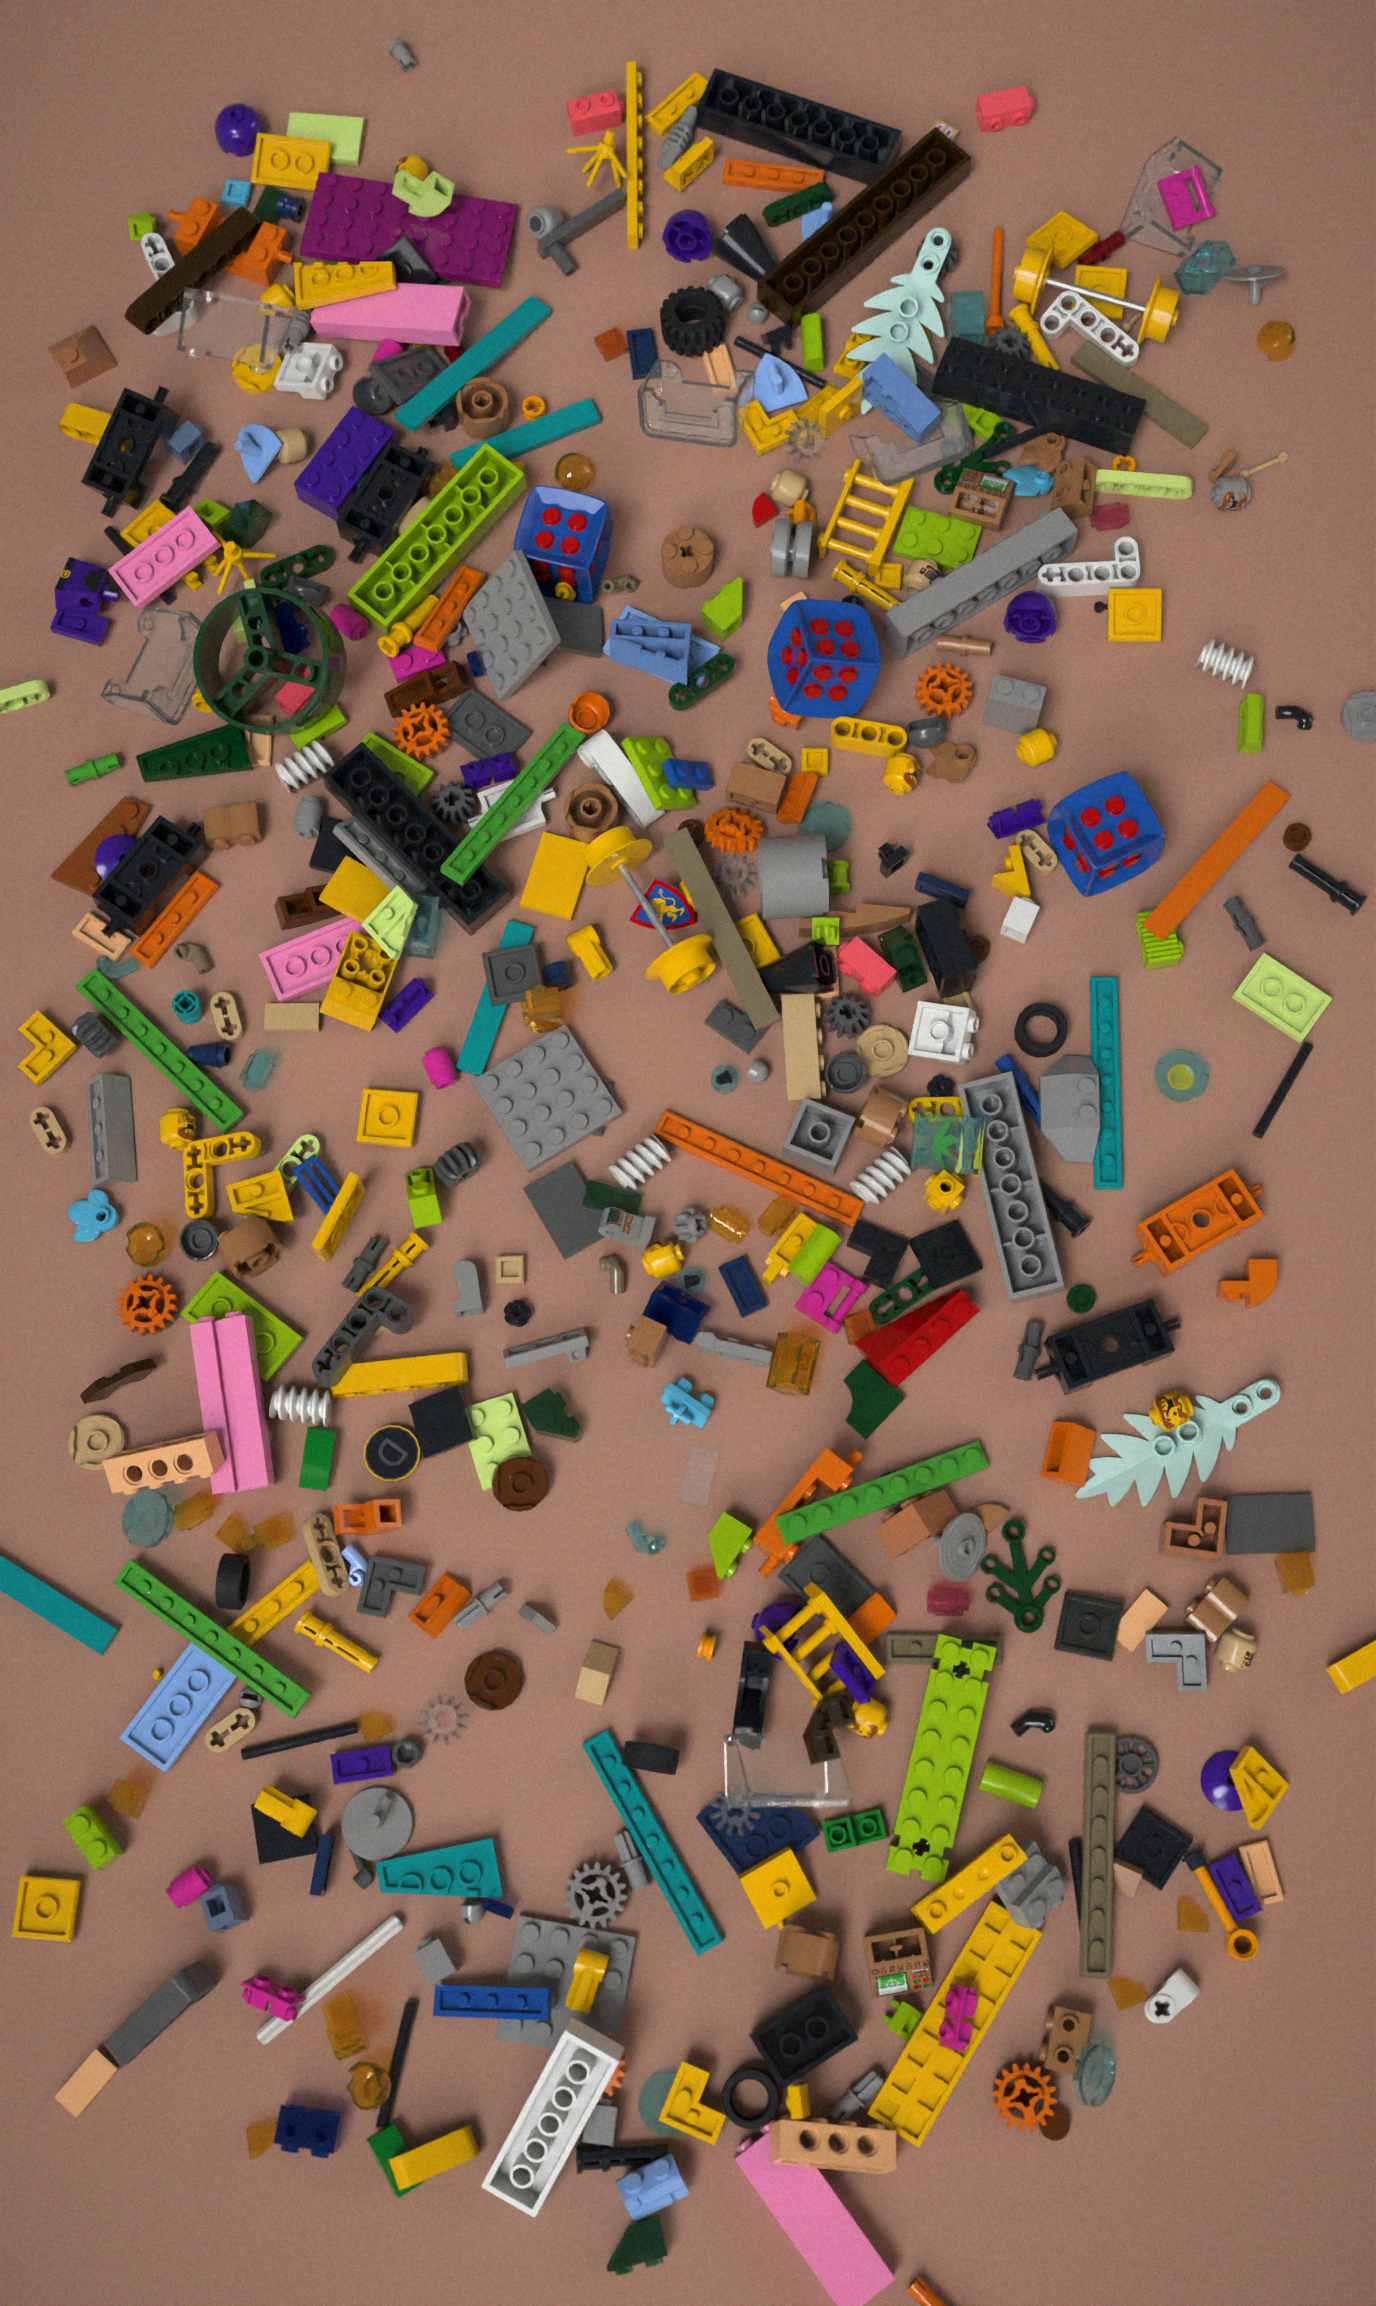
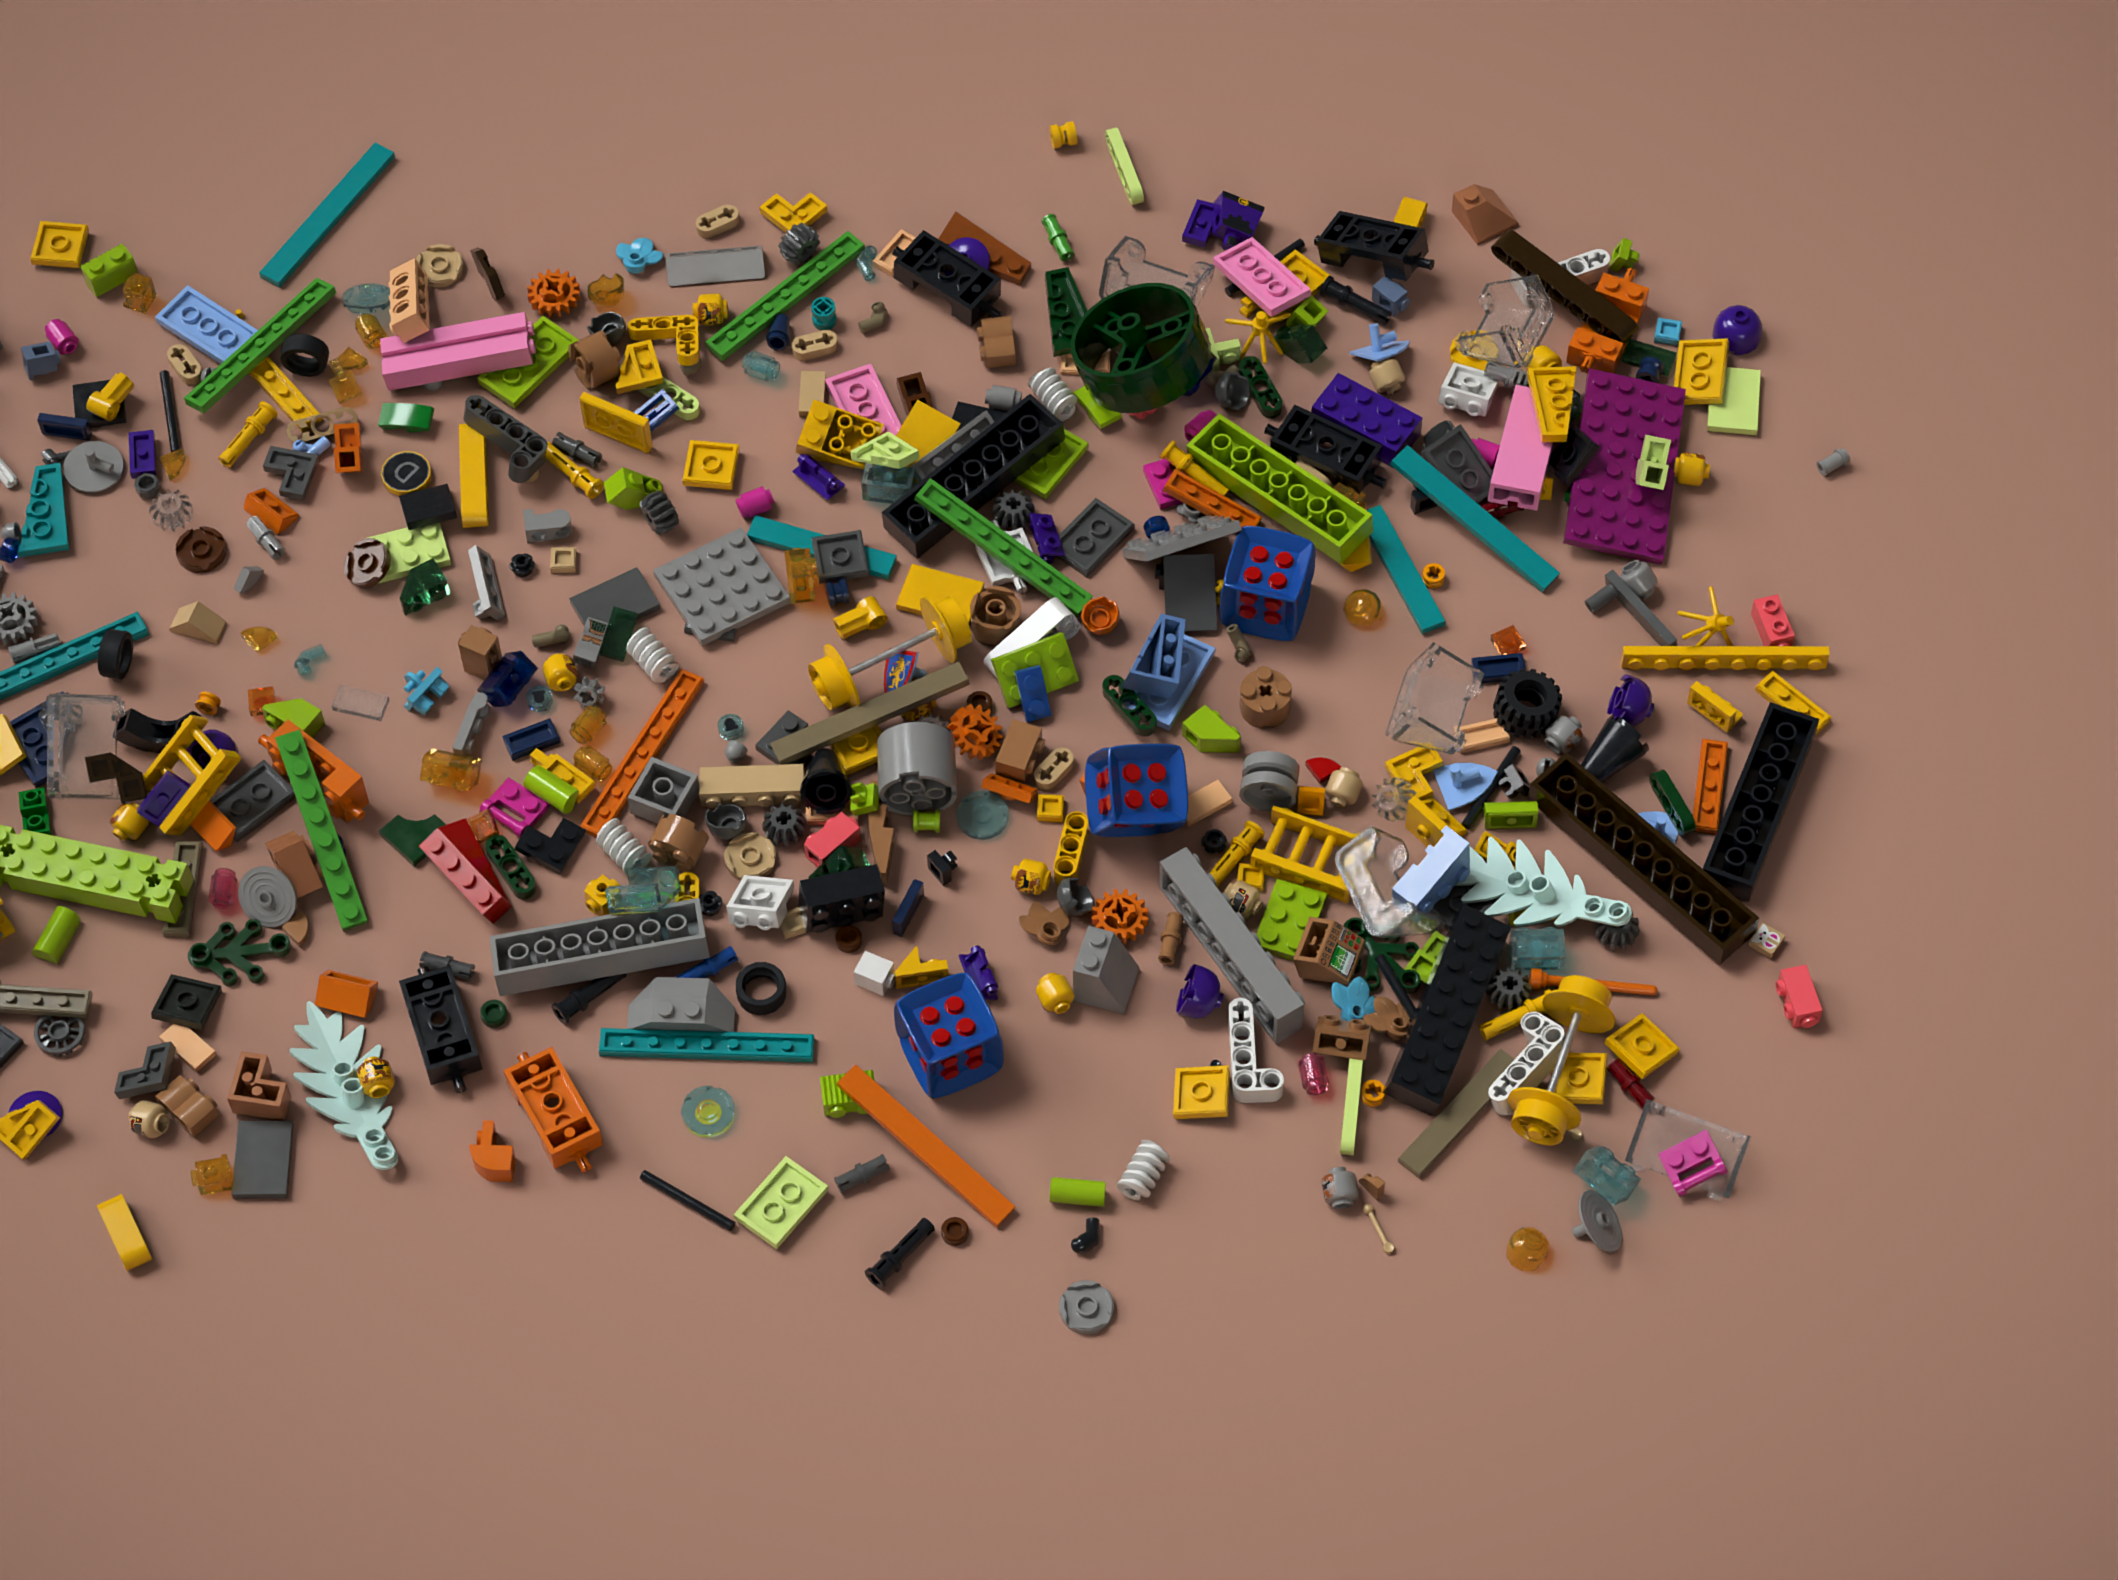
camera: 90 degrees right, 15 degrees down
(174, 920) = (911, 304): orange tile -> none
(300, 1405) = (451, 404): white piece -> none
(422, 736) = (1086, 483): orange gear -> none
(428, 688) = (1130, 490): reddish brown slope -> none
(483, 408) = (1426, 528): medium nougat brick -> none
(677, 138) = (1744, 697): light grey hinge -> none
(945, 1255) = (543, 897): black tile -> none
(1034, 1719) = (109, 957): black arm -> none

